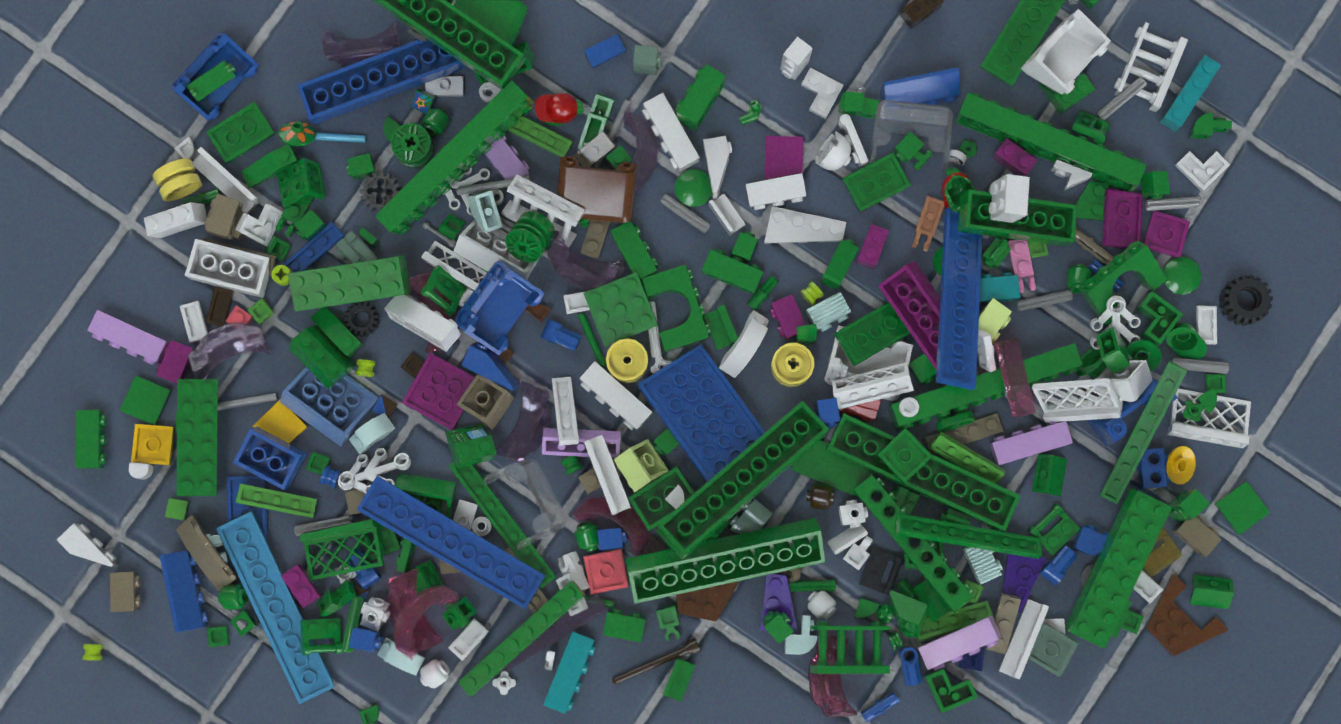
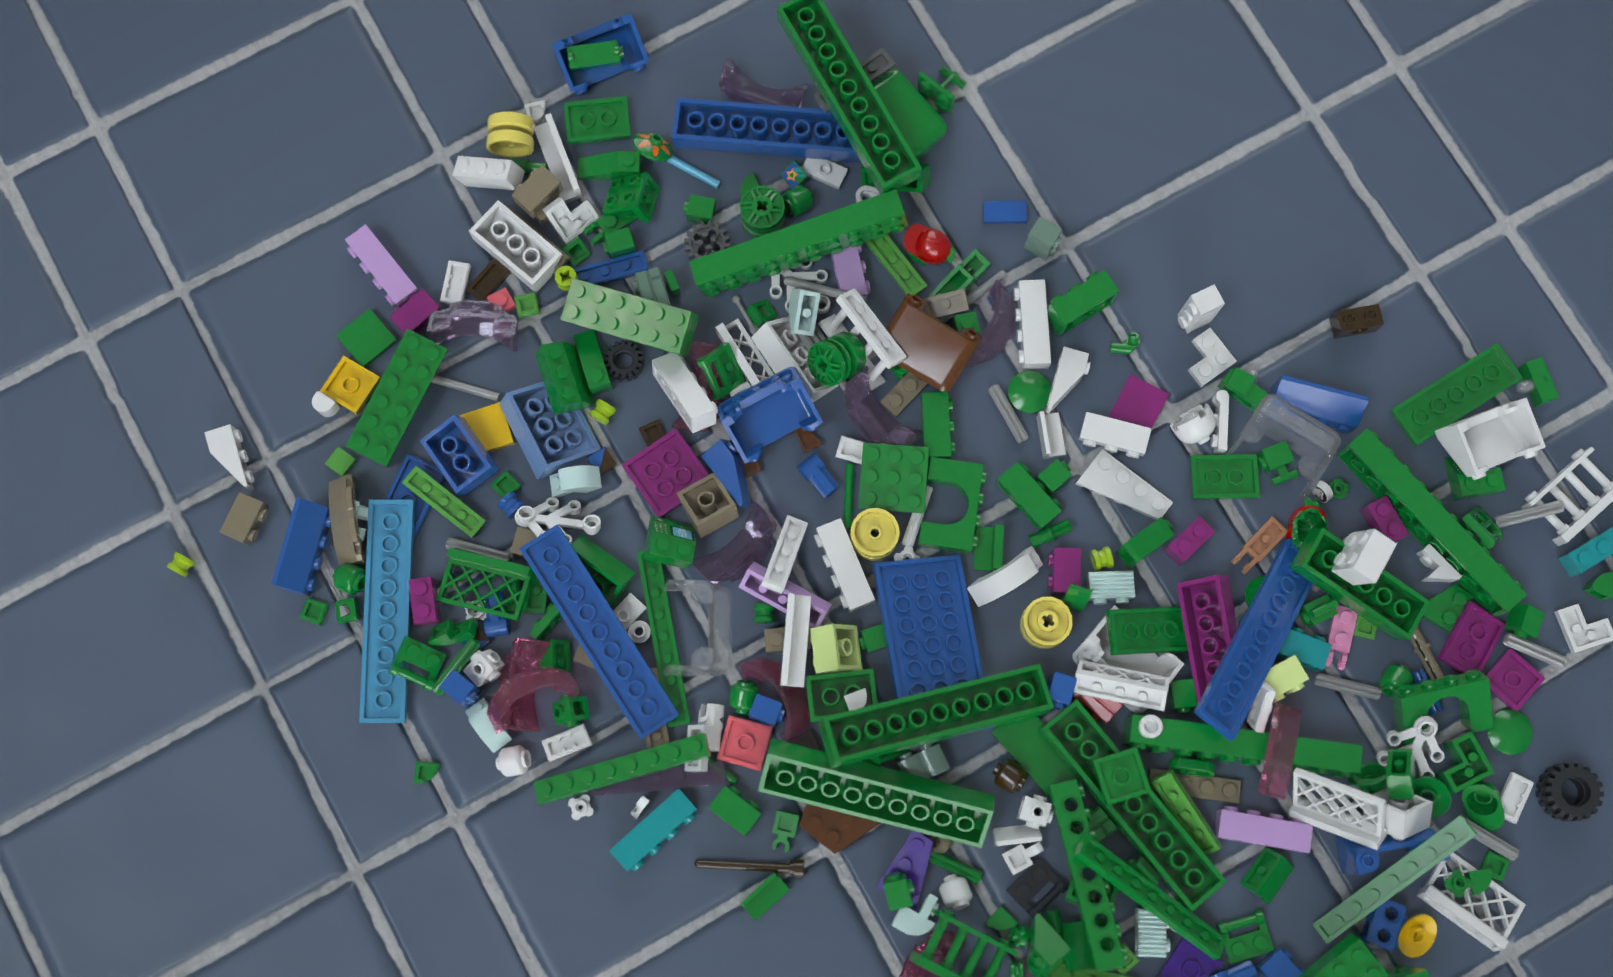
camera: 25 degrees right, 5 degrees down
(90, 439) = (291, 349): green brick -> none

